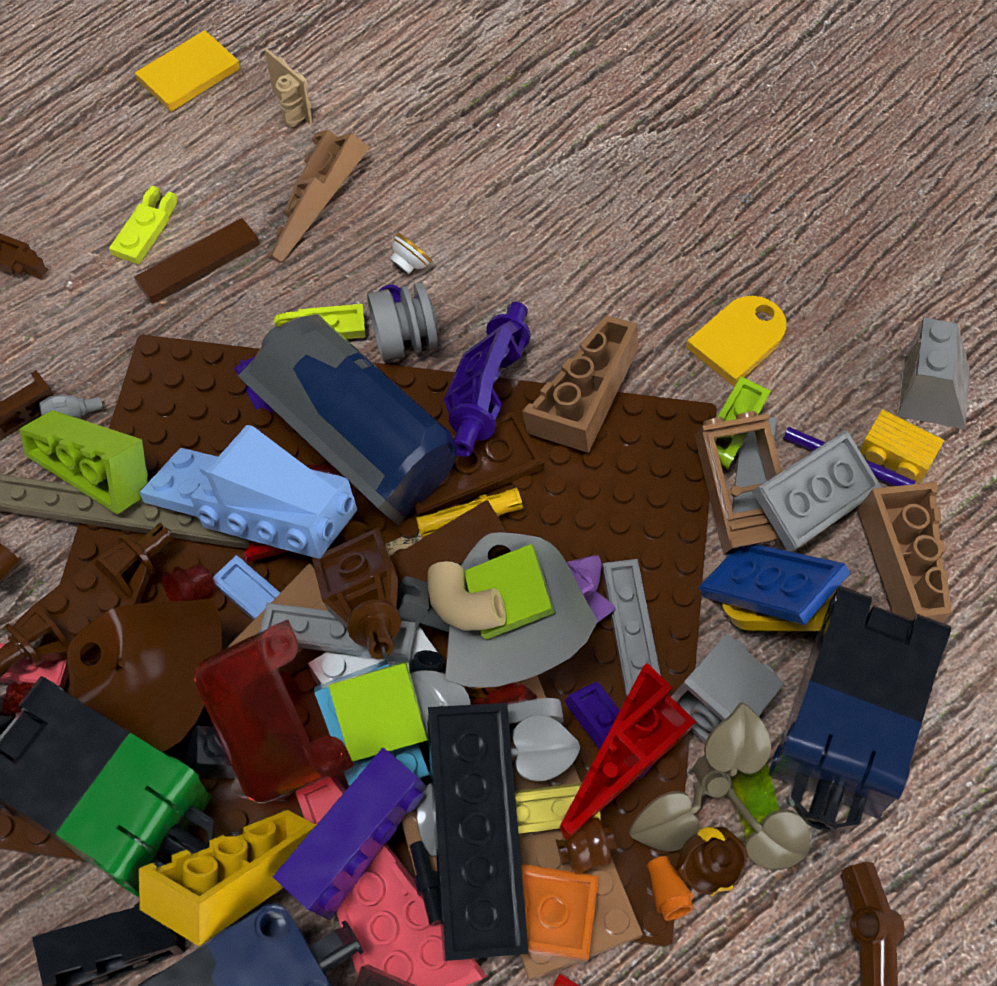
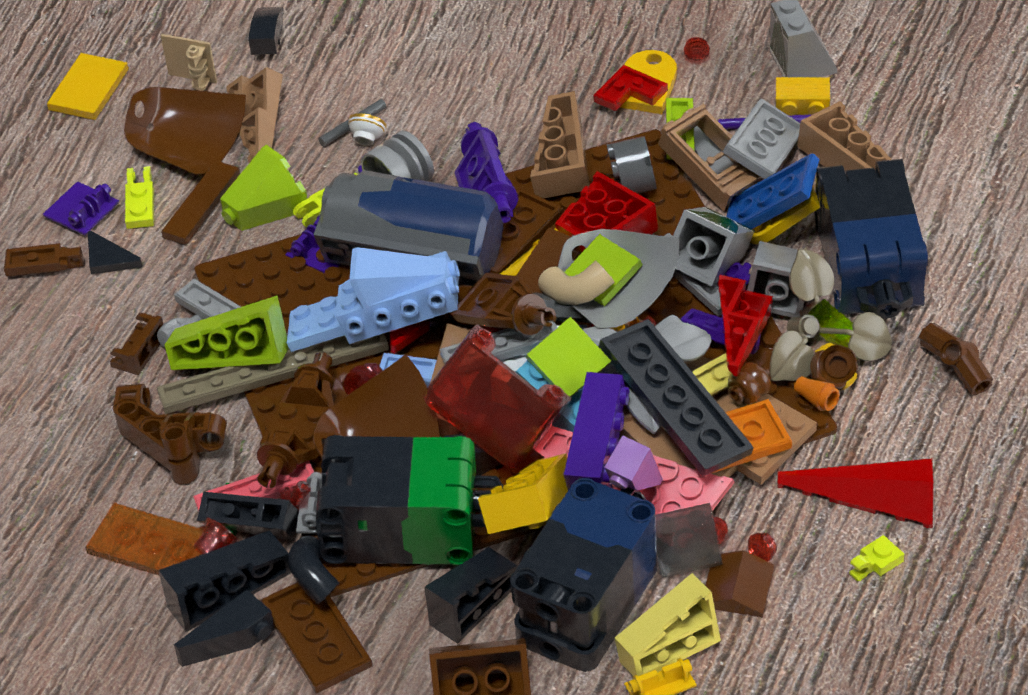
camera: 25 degrees left, 15 degrees down
(67, 279) = (108, 256): none -> black tile
(83, 209) = (82, 207): none -> dark purple hinge
(114, 397) = (203, 300): none -> light grey tile
(245, 172) = (189, 125): none -> reddish brown piece
(250, 282) = (262, 192): none -> lime slope
(350, 922) = (632, 466): none -> medium lavender slope
(391, 85) = (265, 30): none -> black slope
(413, 235) = (343, 128): none -> dark grey bar
(426, 882) = (662, 446): black bar -> none
(574, 506) = (608, 206): none -> red wedge
(644, 452) = (632, 164): none -> dark grey brick
(663, 606) = (709, 244): none -> light grey slope
(677, 663) = (739, 271): none -> dark purple plate
(714, 332) = (628, 83): none -> red tile
(823, 316) = (696, 49): none -> clear red plate

